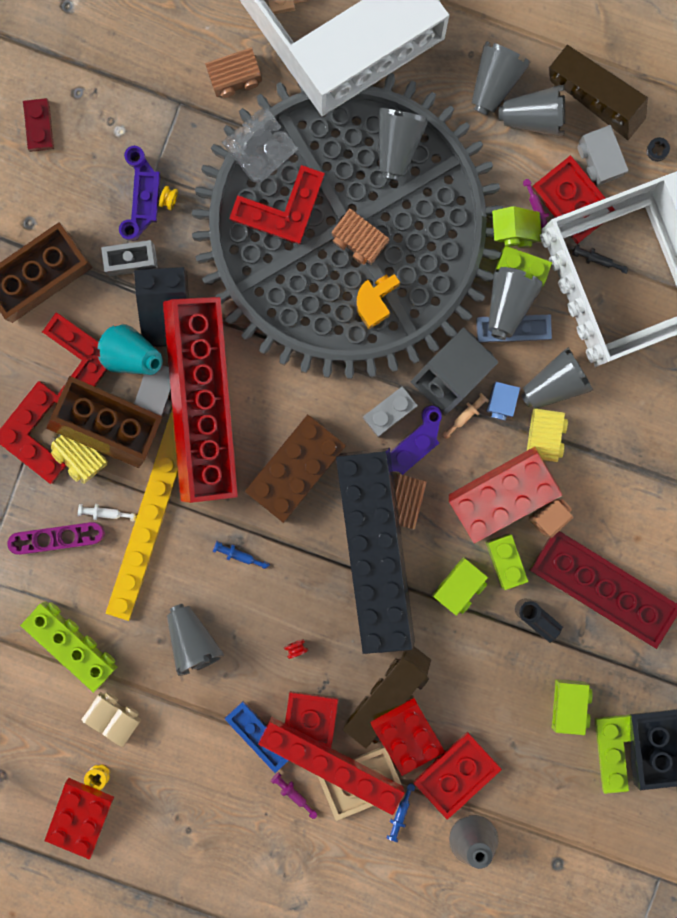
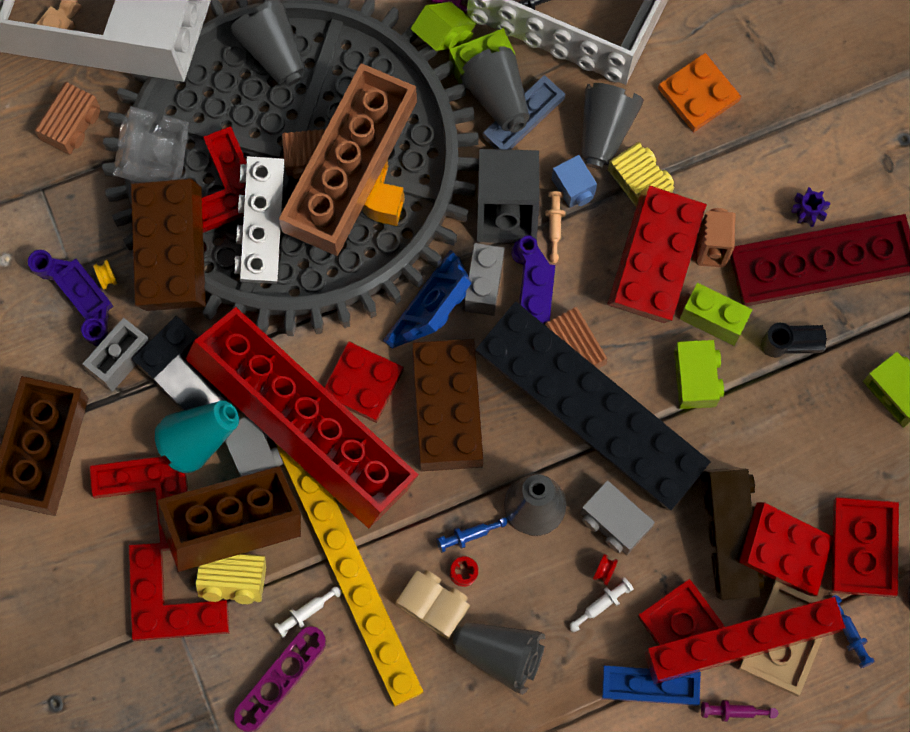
camera: 45 degrees left, 15 degrees down
(179, 577) = (433, 604): none -> tan brick
(214, 219) = (168, 245): none -> reddish brown brick
(223, 572) = (457, 578): none -> red bush
(261, 406) = (363, 381): none -> red plate
(282, 666) = (602, 603): none -> white piece
(286, 254) = (261, 220): none -> white brick
(300, 564) = (535, 504): none -> dark grey cone
(330, 626) = (616, 518): none -> light grey brick
(345, 398) = (432, 303): none -> blue wing
(370, 266) = (348, 159): none -> nougat brick
(636, 547) = (805, 211): none -> dark purple gear
(637, 412) = (699, 92): none -> orange plate

